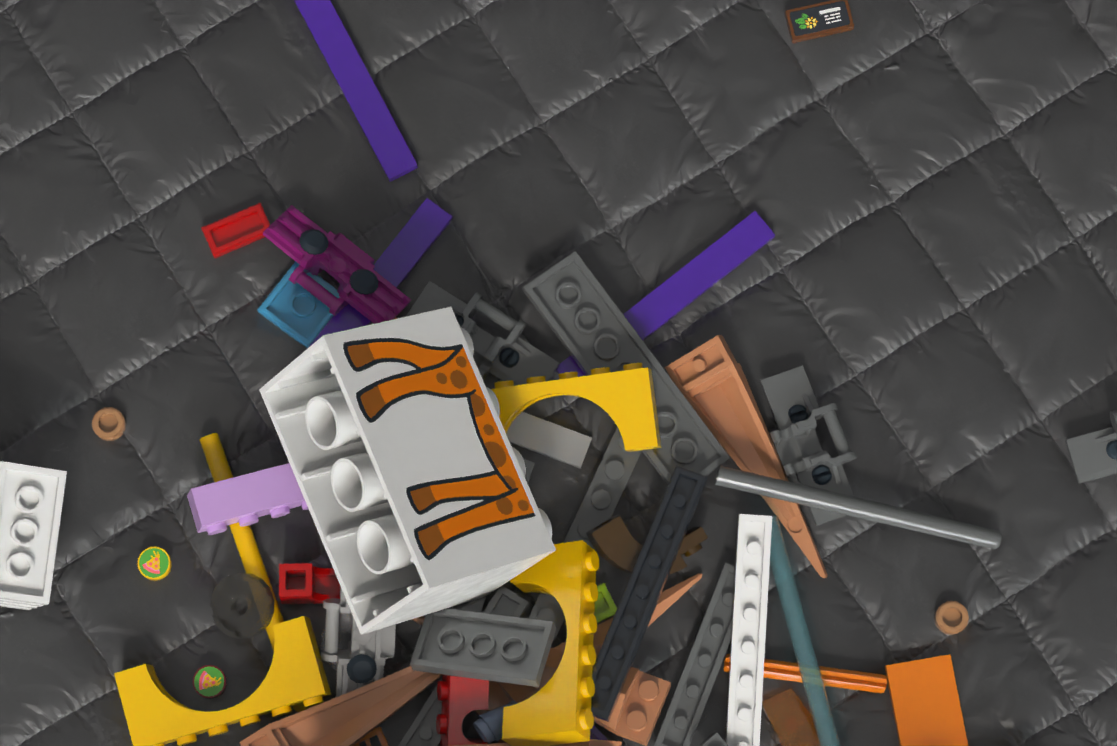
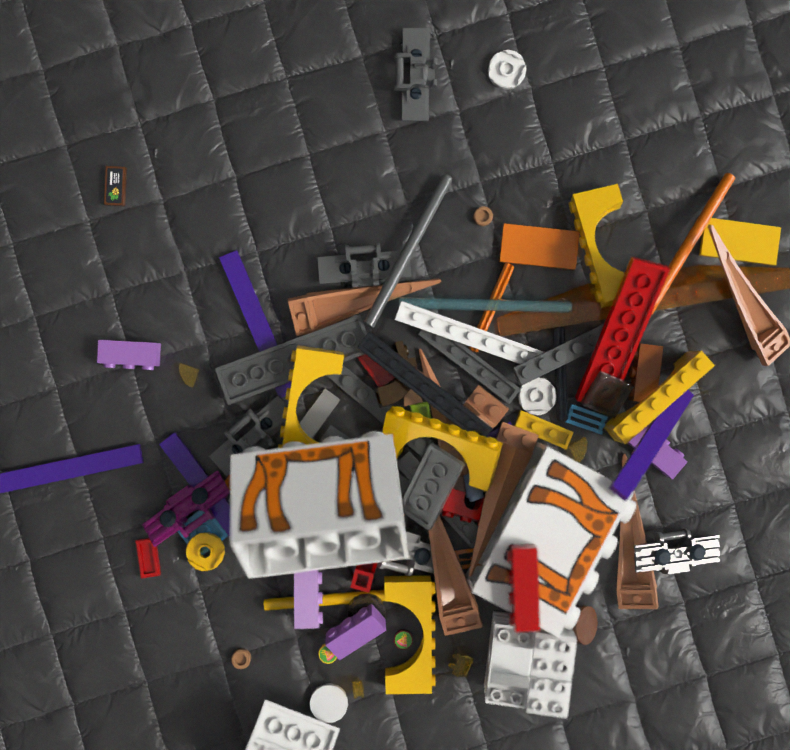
camera: 70 degrees left, 10 degrees up
(75, 588) = (328, 703): none -> white tile
(107, 628) = (358, 689): none -> clear yellow bush
(206, 594) = (355, 631): none -> medium lavender brick
(278, 335) = (208, 540): none -> yellow tile
(552, 214) = (188, 374): none -> clear yellow tile
(559, 112) = (128, 354): none -> medium lavender brick
(616, 583) = (412, 398): none -> medium nougat tile
(644, 511) = (376, 371): none -> red tile

